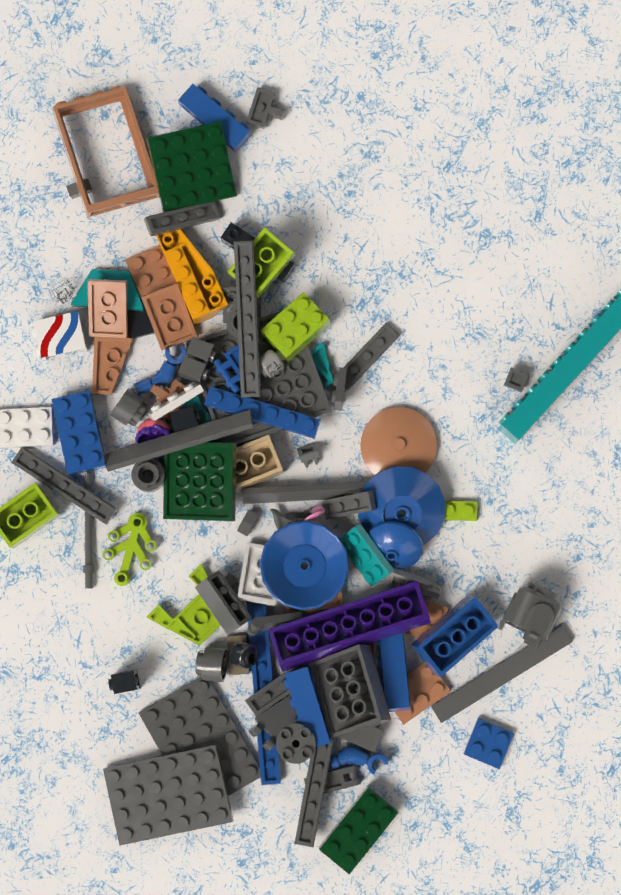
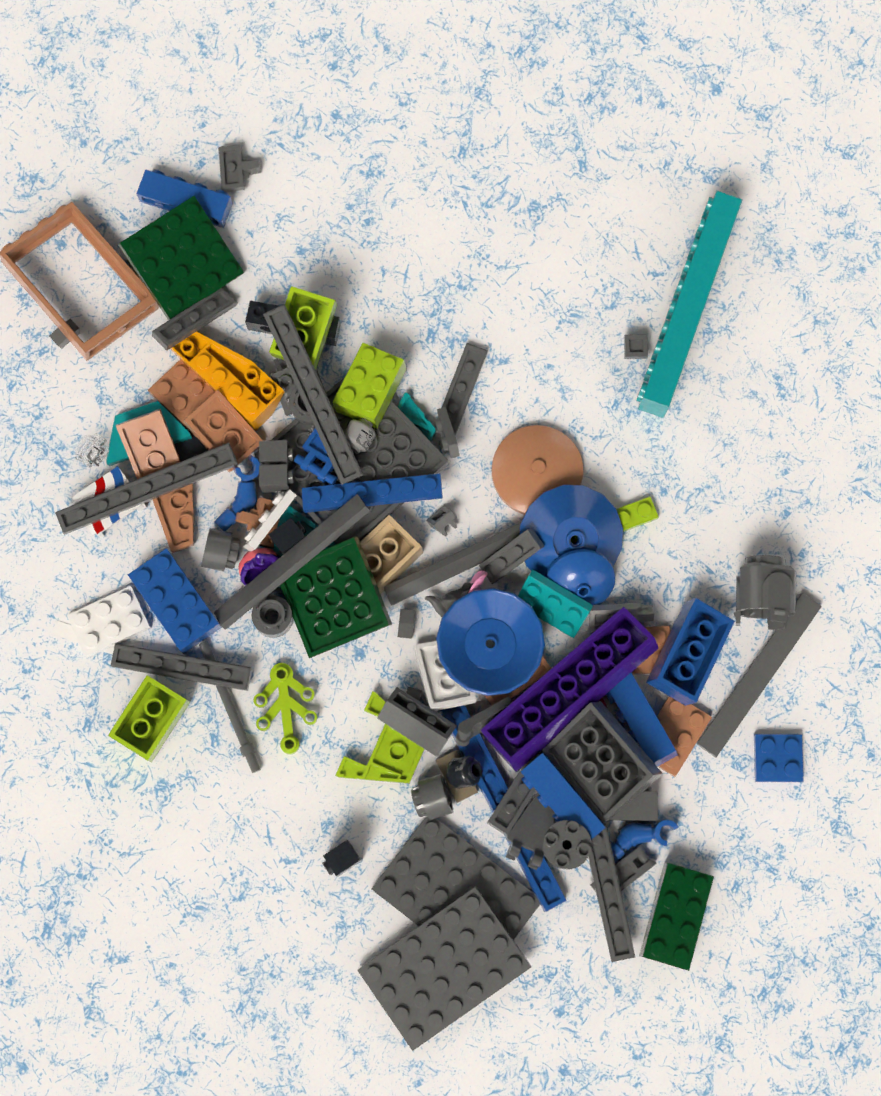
camera: 25 degrees left, 5 degrees down
(92, 338) = (146, 488): none -> dark grey tile

